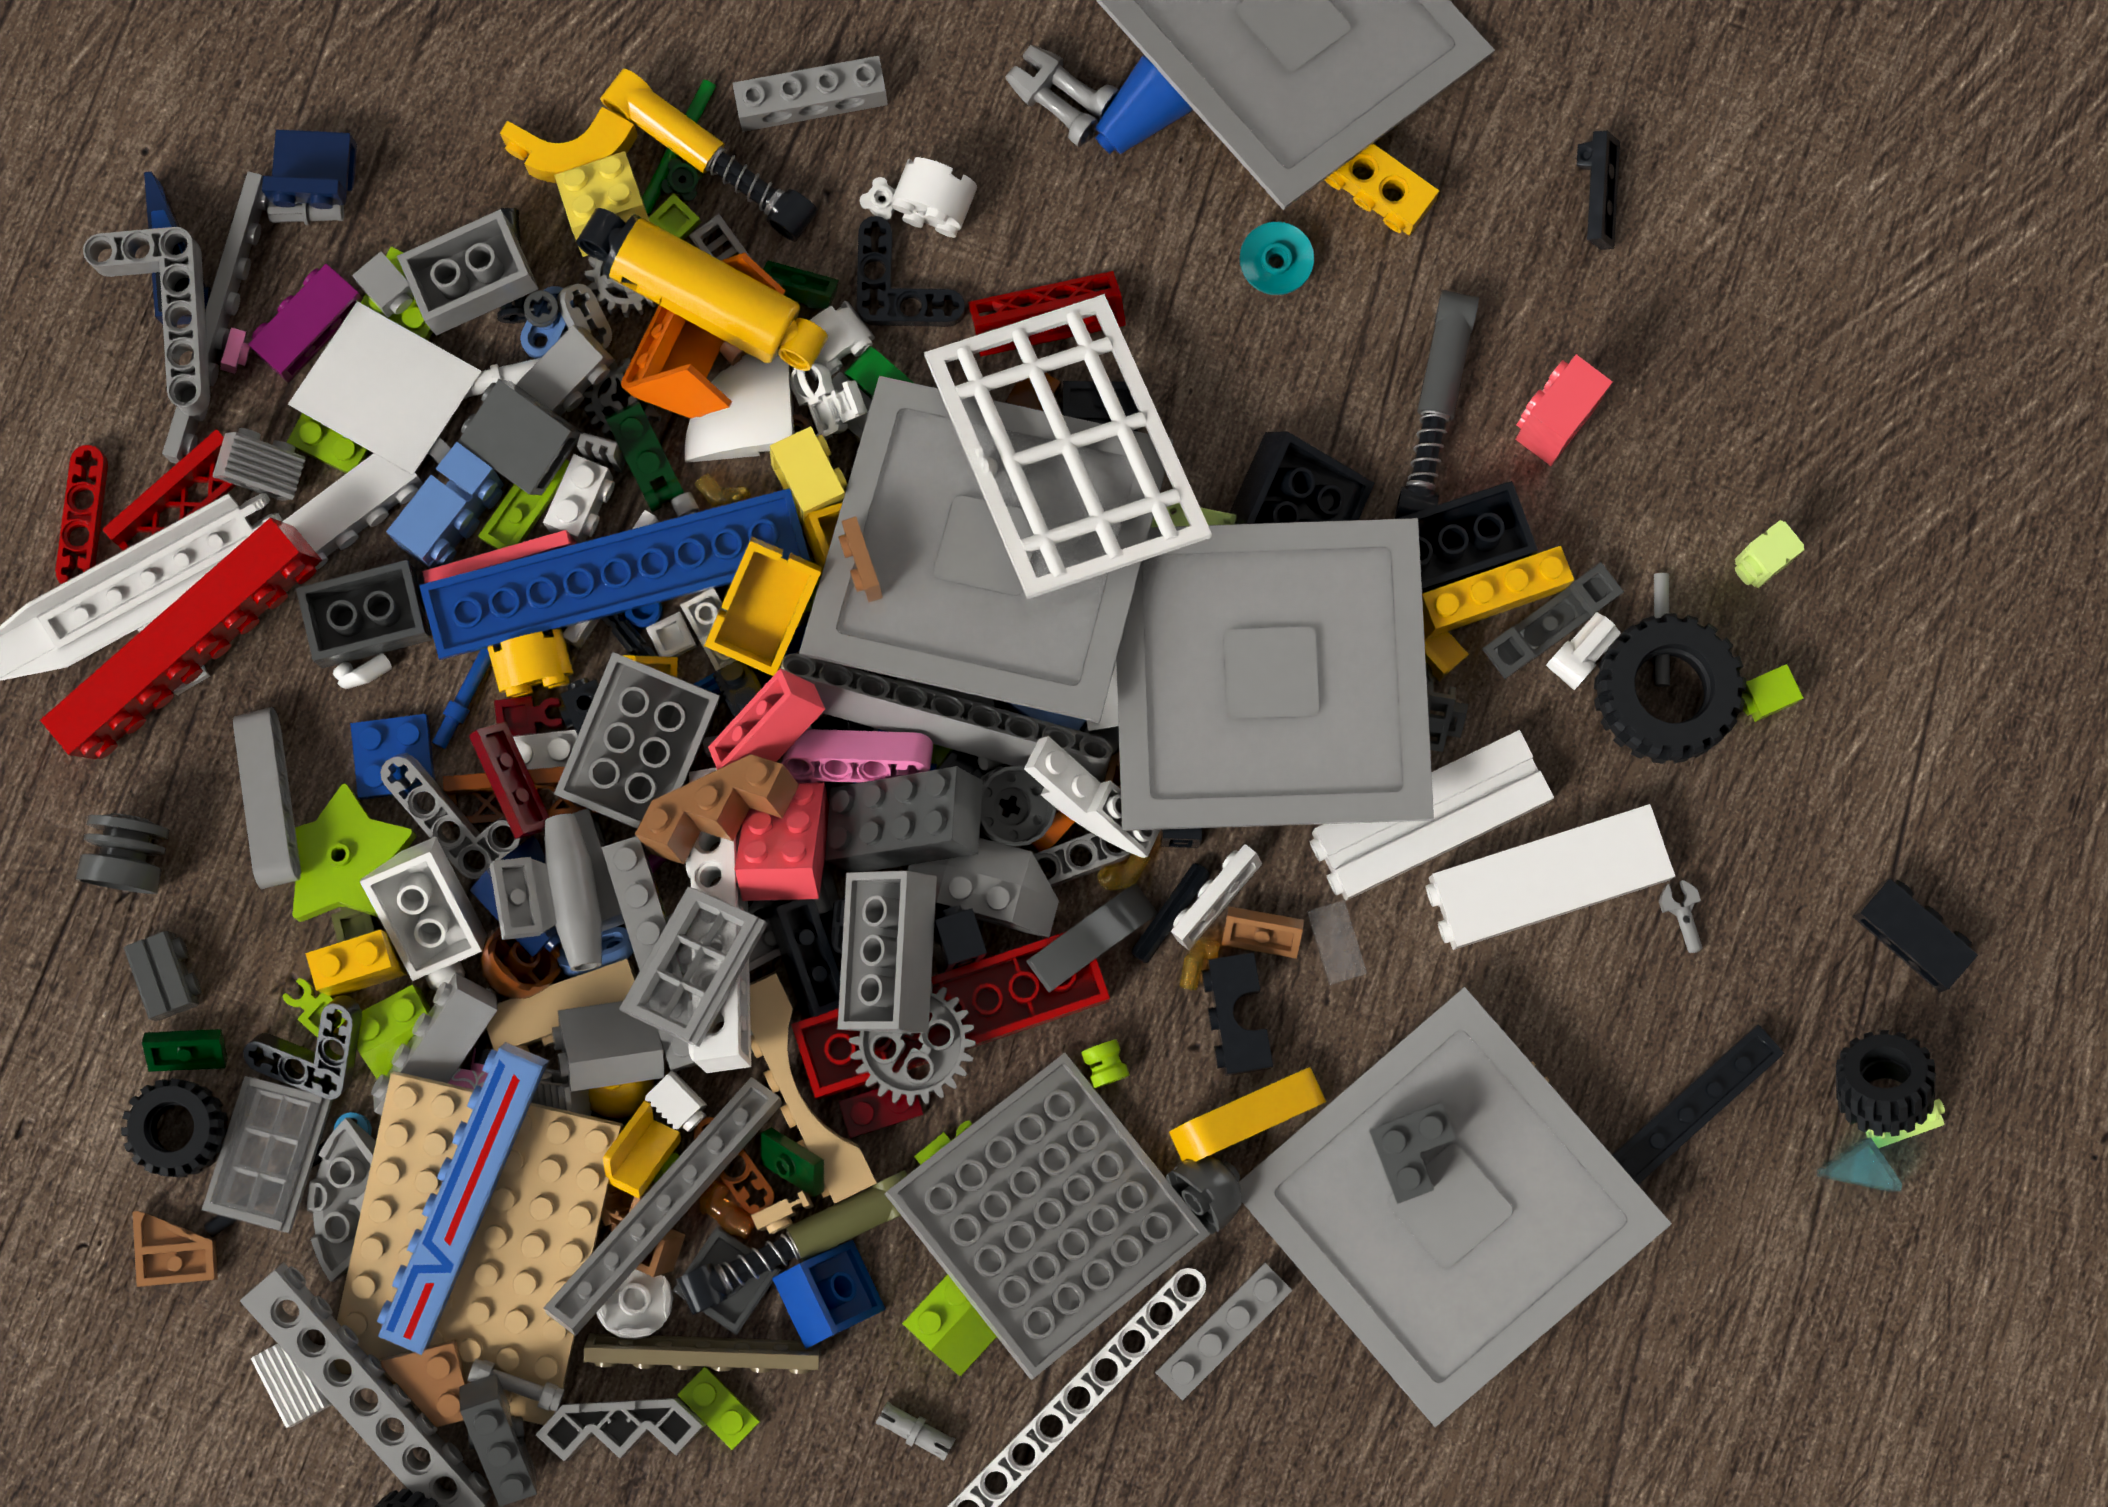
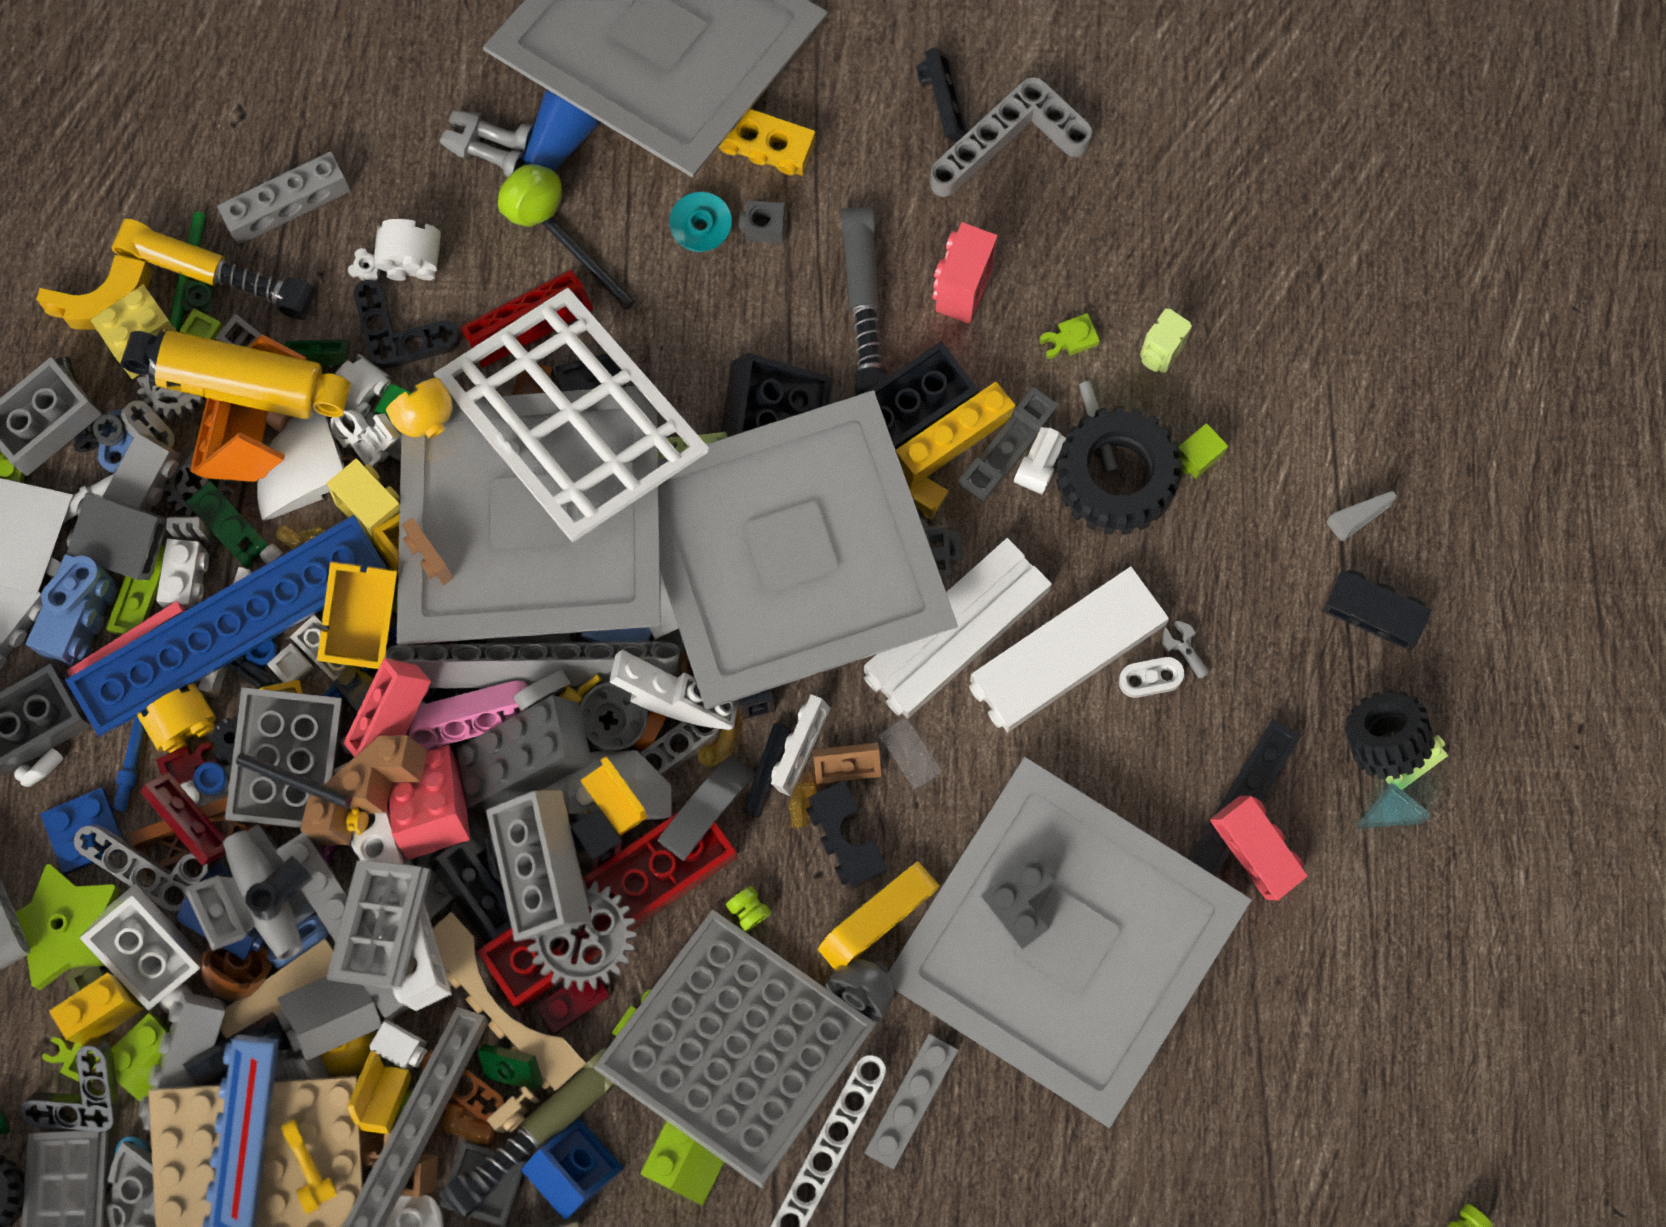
camera: 15 degrees left, 5 degrees down
(452, 478) = (68, 583): none -> medium blue plate
(465, 1064) = (209, 1066): none -> black hinge
(544, 1237) = (317, 1190): none -> yellow brick
(549, 741) = (211, 778): none -> blue tile
(596, 890) = (279, 885): none -> black piece
(643, 776) = (294, 780): none -> black bar
(699, 841) = (357, 821): none -> yellow piece
(900, 394) = (423, 410): none -> yellow cylinder
(945, 754) = (541, 690): none -> light grey beam
(975, 767) = (576, 696): none -> yellow hand
(992, 901) = (614, 797): none -> yellow panel
(1091, 173) = (530, 195): none -> lime piece
(1135, 267) = (589, 262): none -> black bar
(1351, 294) = (769, 233): none -> dark grey brick
(1634, 934) = (1150, 677): none -> white plate
(1657, 251) = (1006, 130): none -> light grey beam
(1666, 514) = (1073, 335): none -> lime plate
(1698, 1166) = (1259, 847): none -> coral brick
(1919, 822) = (1353, 518): none -> light grey slope

